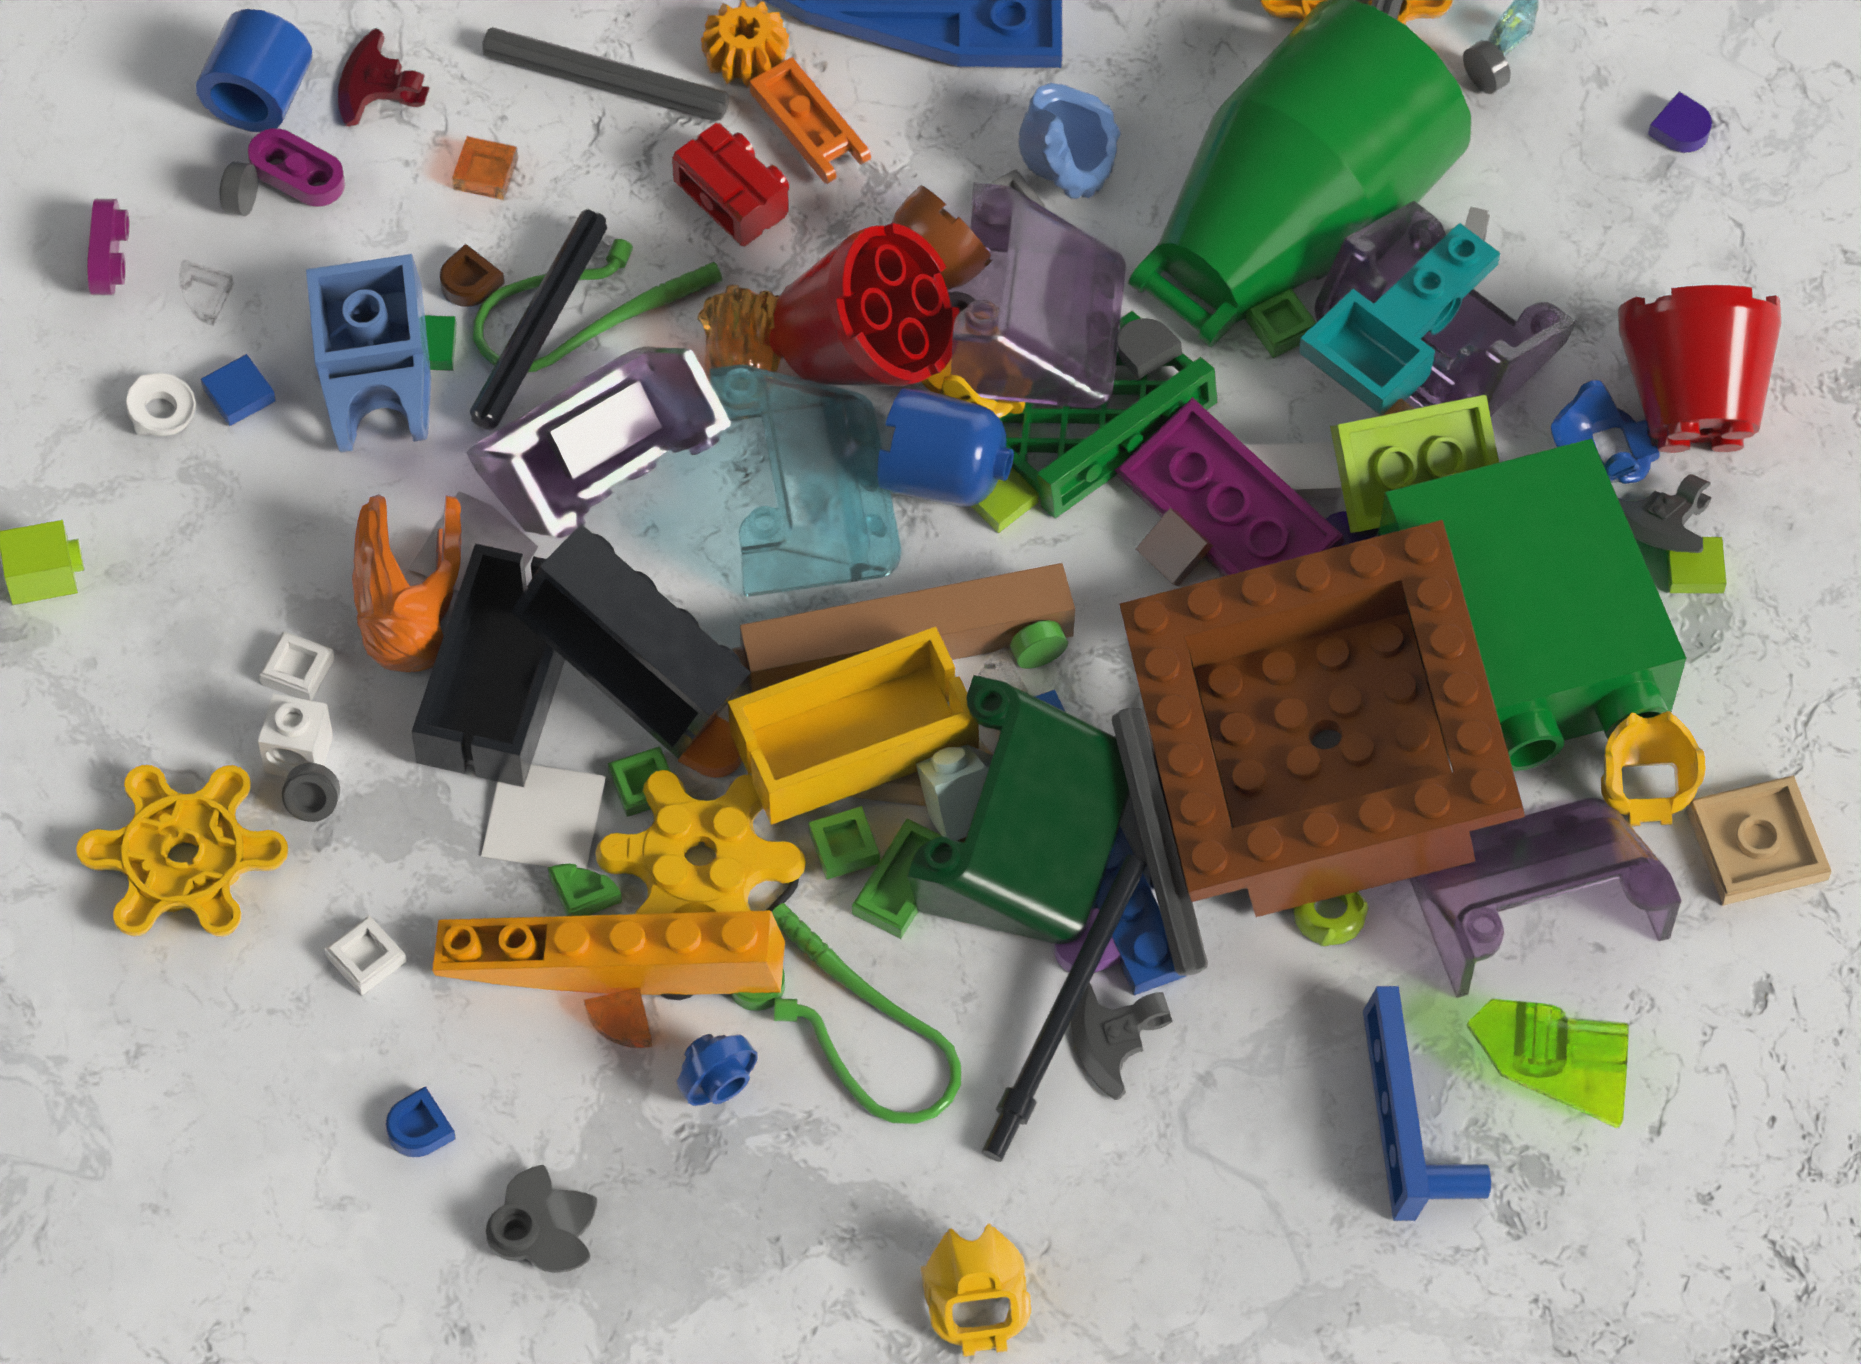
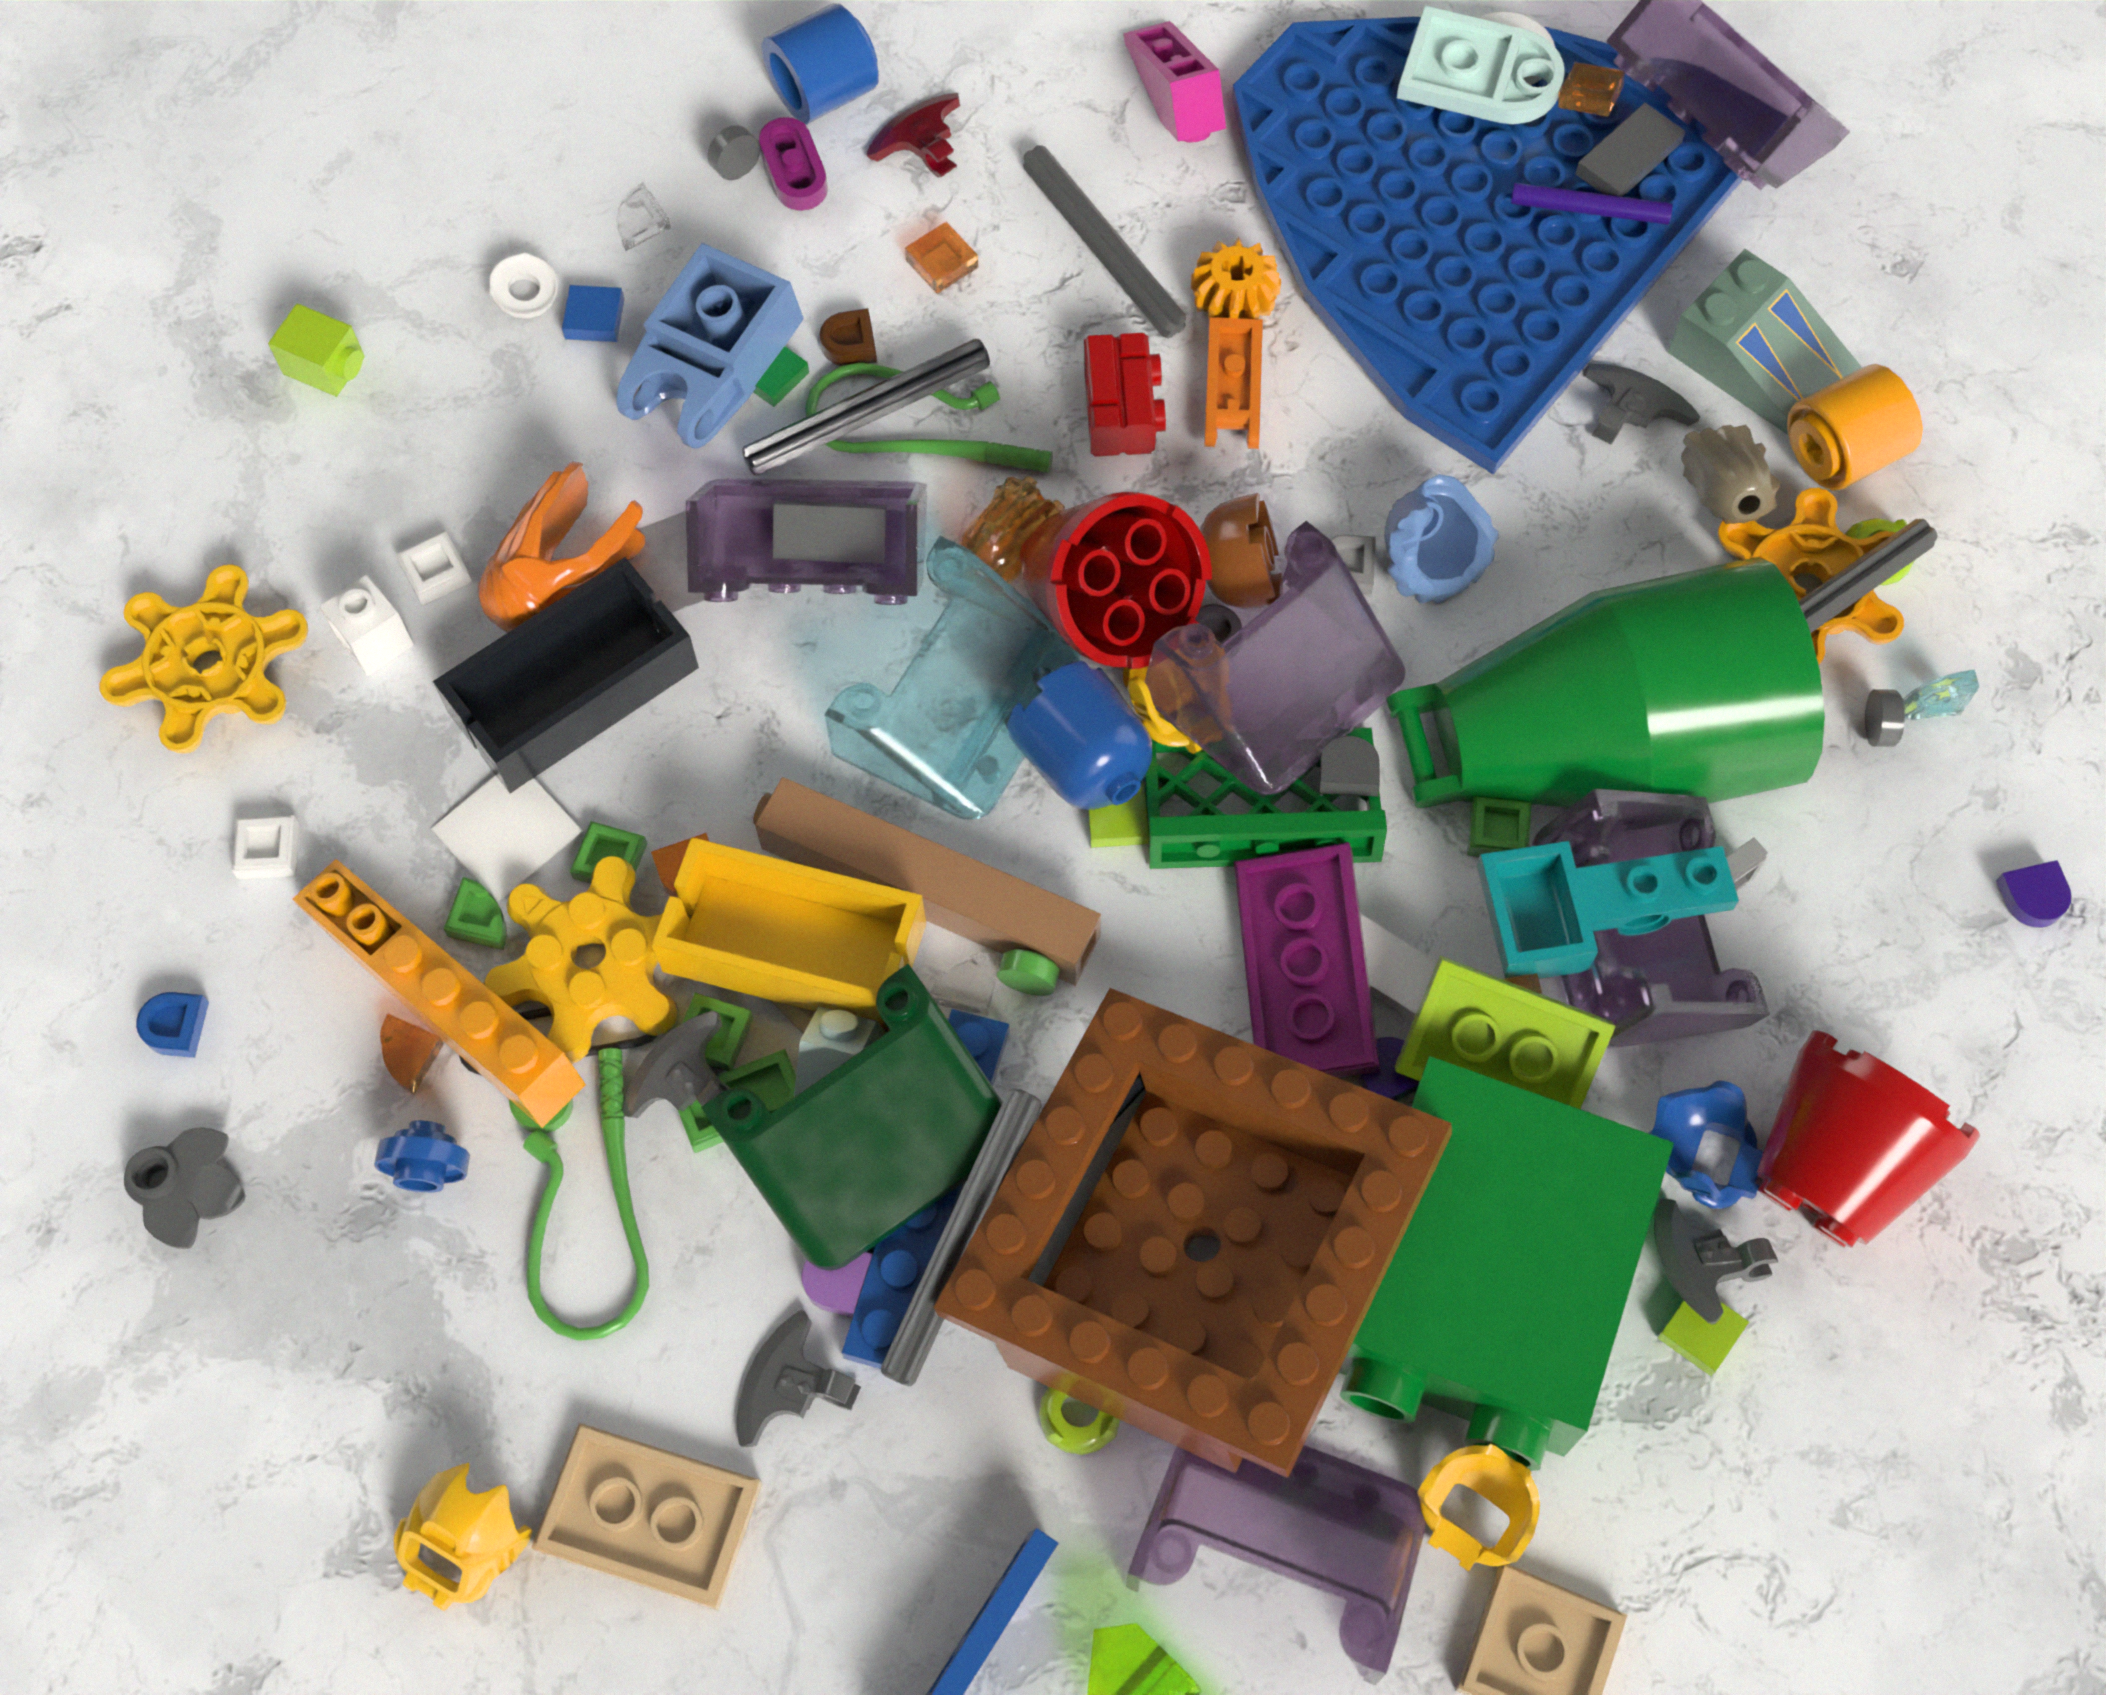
camera: 40 degrees right, 5 degrees up
(105, 263) = (593, 134): magenta plate -> none
(311, 792) = (340, 679): dark grey tile -> none
(630, 640) = (654, 723): black piece -> none
(847, 882) = (677, 1069): none -> dark grey piece
(1018, 1101) = (650, 1383): black bar -> none
(1093, 1188) = (647, 1516): none -> tan tile
(1174, 547) = (1223, 968): tile -> none

